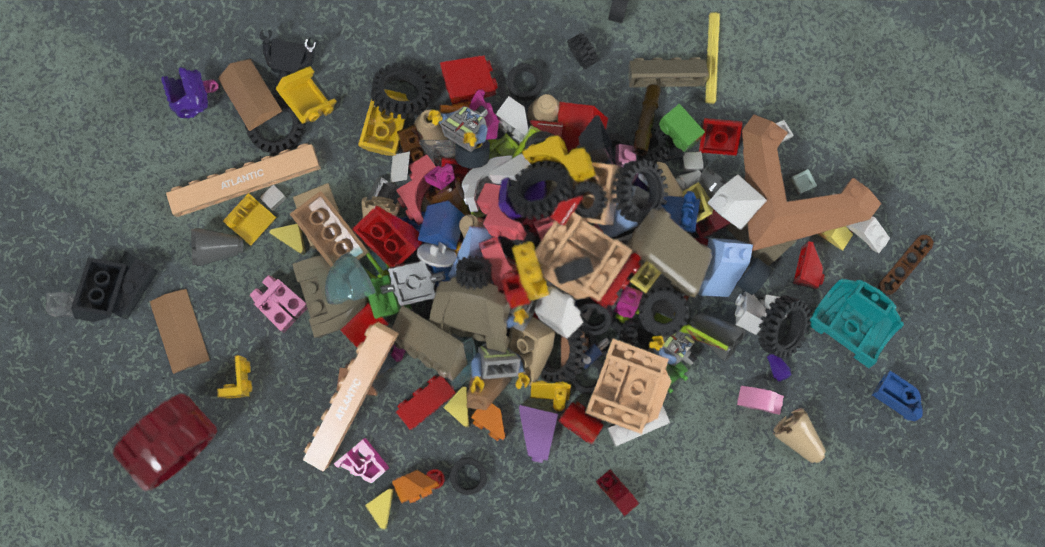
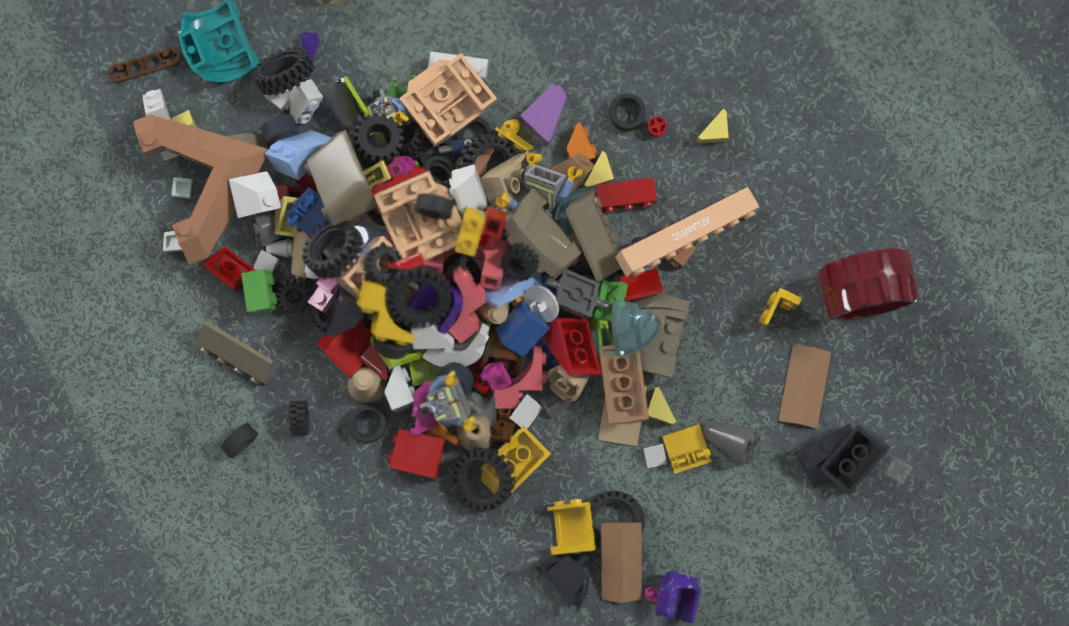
camera: 150 degrees left, 0 degrees up
(243, 180) = (672, 485): light nougat brick -> none
(274, 298) = (702, 362): bright pink hips -> none
(368, 467) = (706, 170): slope -> none
(413, 485) = (677, 129): orange slope -> none
(581, 423) = (509, 100): red slope -> none
(617, 492) = (510, 25): dark red slope -> none
(646, 120) = (283, 320): dark brown piece -> none
(712, 57) = (186, 346): light yellow axle -> none
(760, 399) = (343, 27): bright pink brick -> none
(809, 268) = (229, 110): red slope -> none

